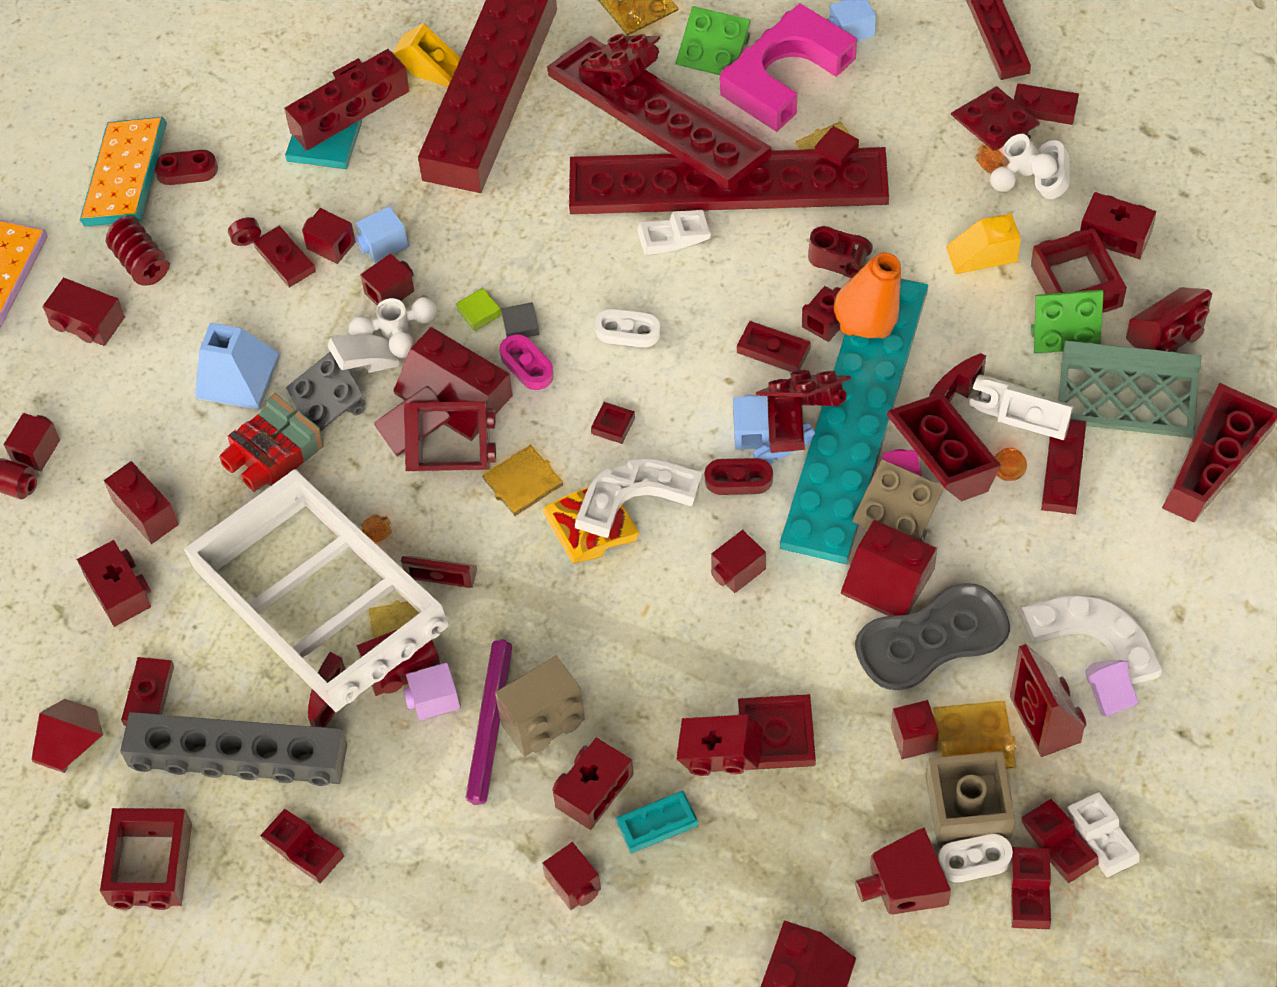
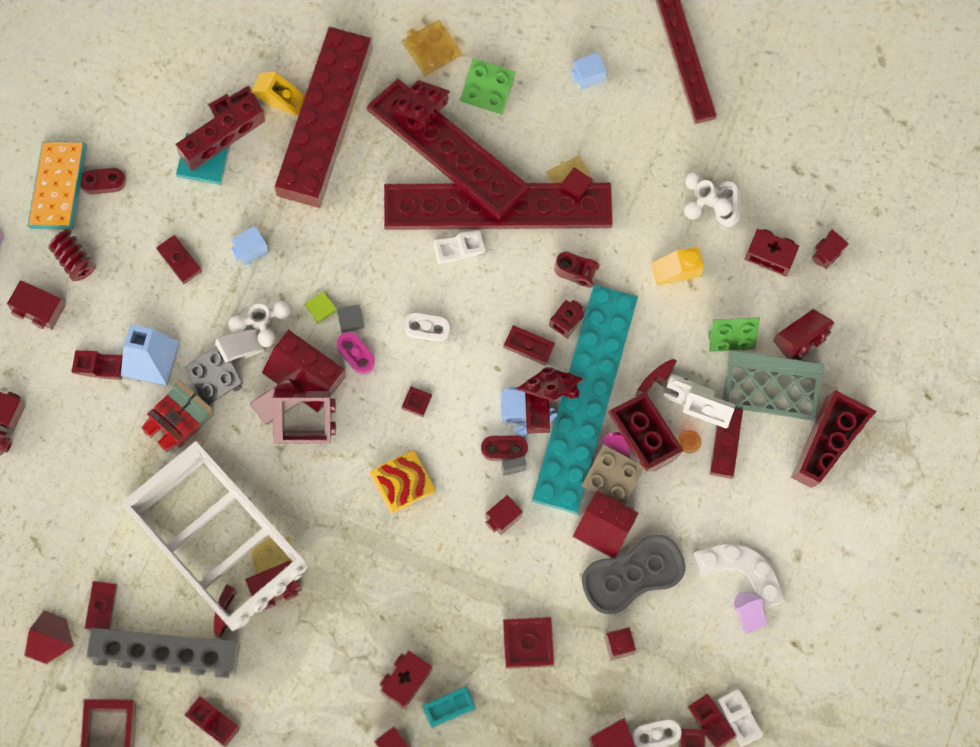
camera: 10 degrees left, 15 degrees up
(114, 582) = (77, 537): dark red brick -> none
(141, 502) = (88, 462): dark red brick -> none
(159, 385) = (97, 365): none -> dark red slope
(244, 231) = (149, 240): dark red tile -> none
(328, 235) = (210, 245): dark red brick -> none
(376, 528) = (253, 484): clear orange plate -> none
(387, 280) = (255, 285): dark red brick -> none
(431, 692) = (295, 611): lavender brick -> none
(439, 571) = (298, 515): dark red slope -> none
(488, 723) = (335, 632): magenta axle -> none
(522, 480) = (354, 445): clear yellow piece -> none
(540, 706) = (371, 627): dark tan brick -> none
(636, 478) = (429, 452): white plate -> none
(719, 744) = (477, 655): dark red brick -> none
(752, 498) = (513, 466): none -> dark grey tile
(796, 35) = (552, 82): dark pink arch -> none
(871, 298) = (597, 319): orange cone -> none
(970, 796) = (655, 695): dark tan brick -> none
(975, 730) = (659, 647): clear yellow hinge -> none
(989, 159) = (684, 193): clear orange plate -> none
(995, 118) = (690, 162): dark red hinge -> none
(1045, 704) = (707, 629): dark red slope -> none
(1047, 103) = (725, 145): dark red plate -> none
(1073, 247) = (741, 268): dark red window -> none
(1201, 220) = (829, 249): none -> dark red brick

